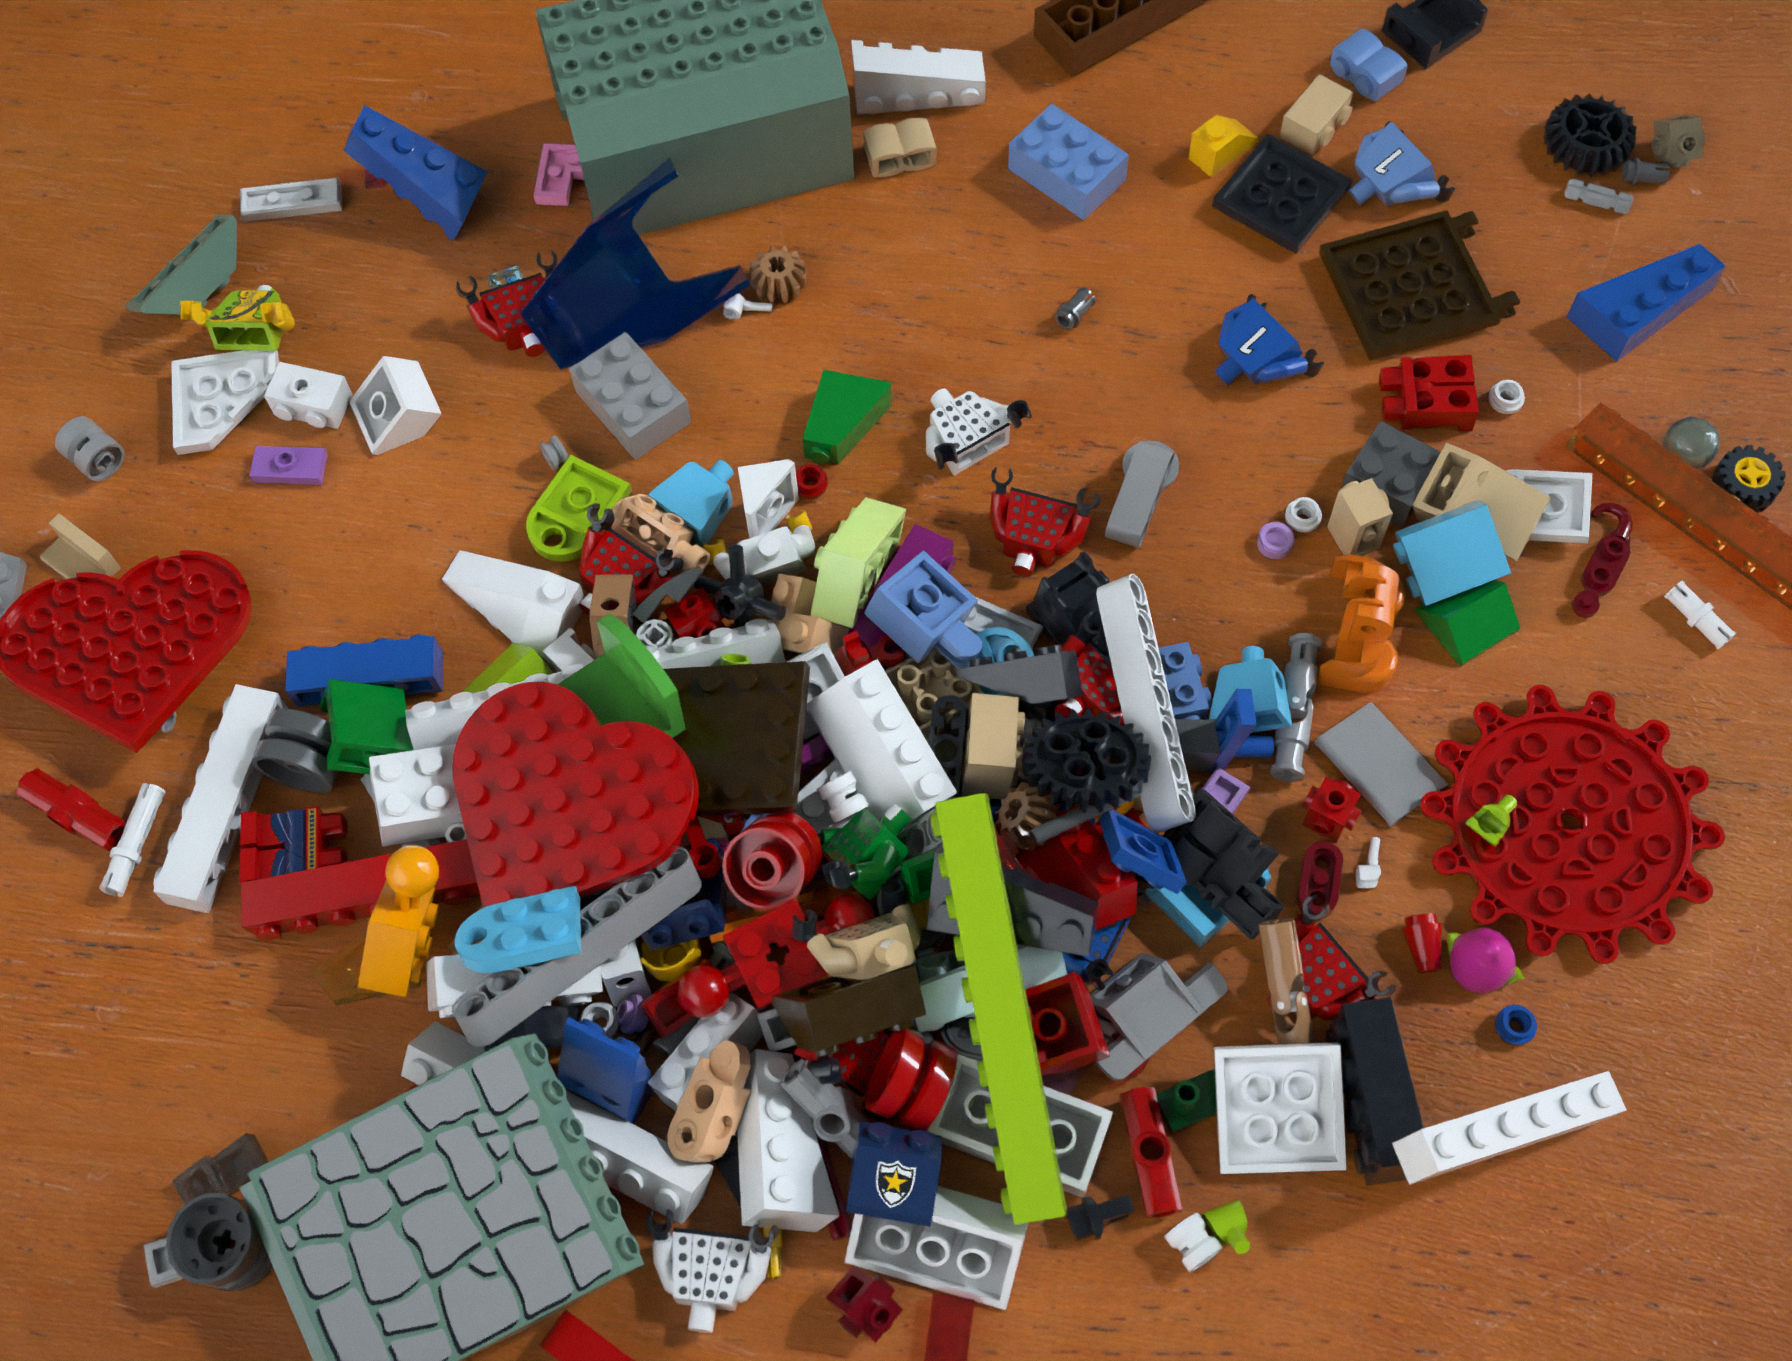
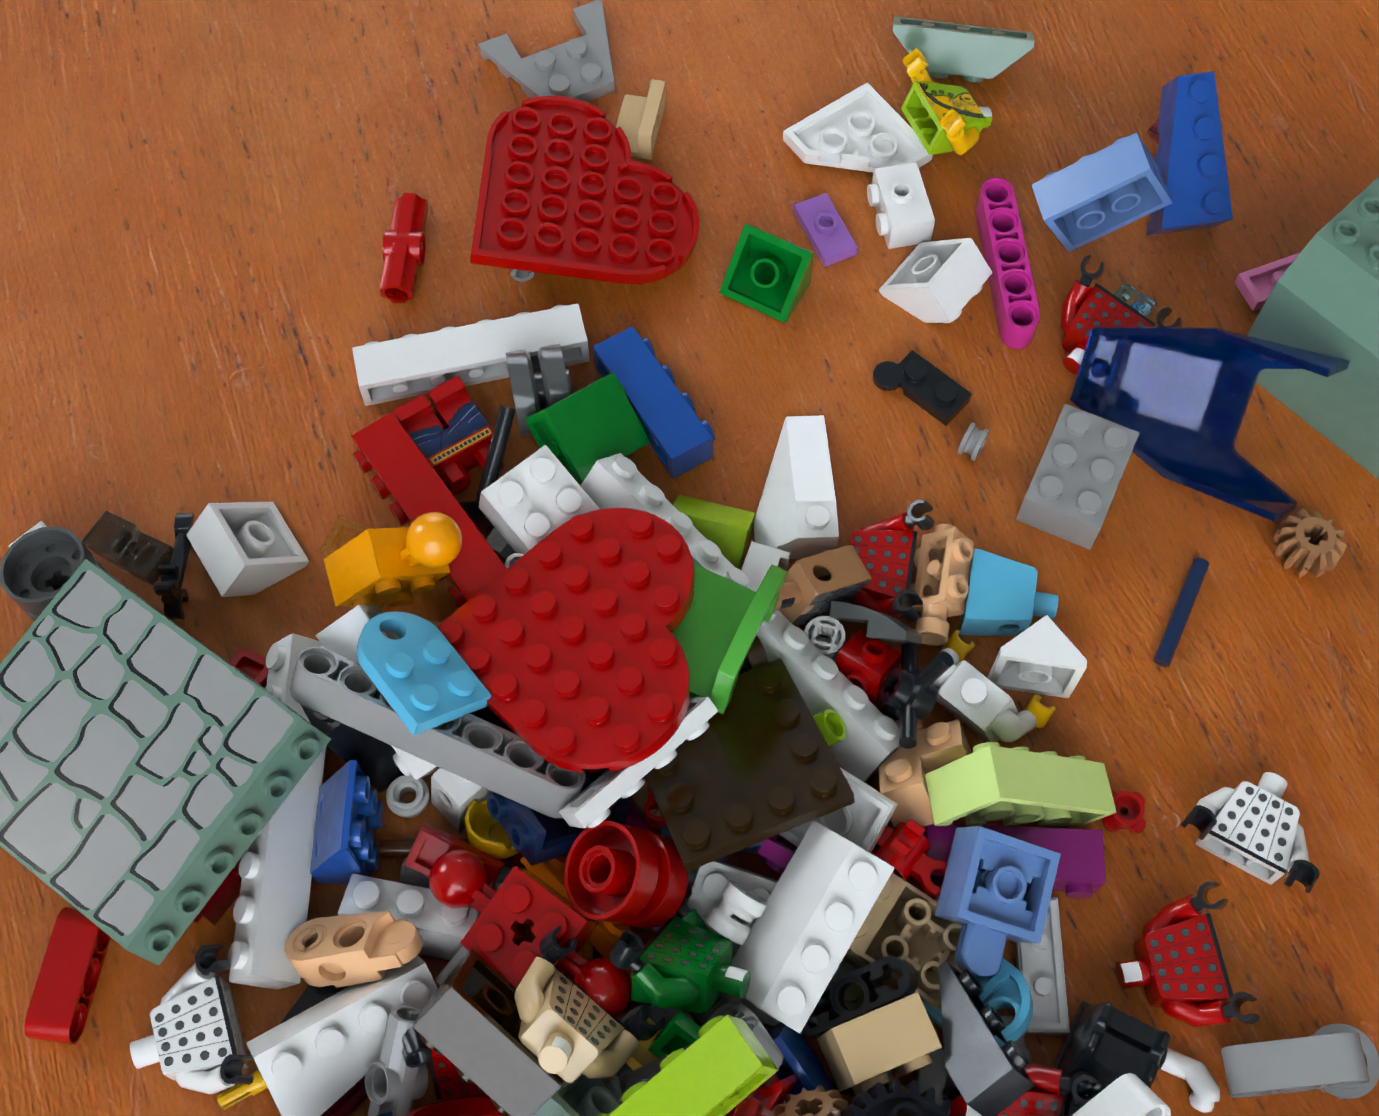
camera: 60 degrees right, 0 degrees up
(89, 448) = (743, 70): light grey wheel -> none
(127, 853) = (393, 309): white pin -> none
(275, 1133) = (173, 574): none -> black bar
(289, 1067) = (245, 546): none -> white slope
(291, 199) = (1096, 84): white tile -> none
(303, 526) = (767, 273): none -> green slope
(346, 820) = (492, 464): none -> black piece
(386, 336) = (1008, 260): none -> dark pink beam
(407, 243) = (1101, 192): none -> medium blue brick
(480, 465) = (923, 385): none -> black hinge
(565, 505) = (943, 481): lime plate -> none
(631, 1015) = (421, 816): lavender plate -> none
(702, 835) = (593, 803): none -> white plate
(734, 306) = (1248, 521): white hand -> none
(777, 386) = (1181, 612): none -> dark blue bar
(811, 473) = (1095, 688): red plate -> none
(843, 414) = (1188, 691): green slope -> none
(910, 498) = (1133, 821): none -> red plate
(1116, 560) = (1198, 1077): none -> white arm

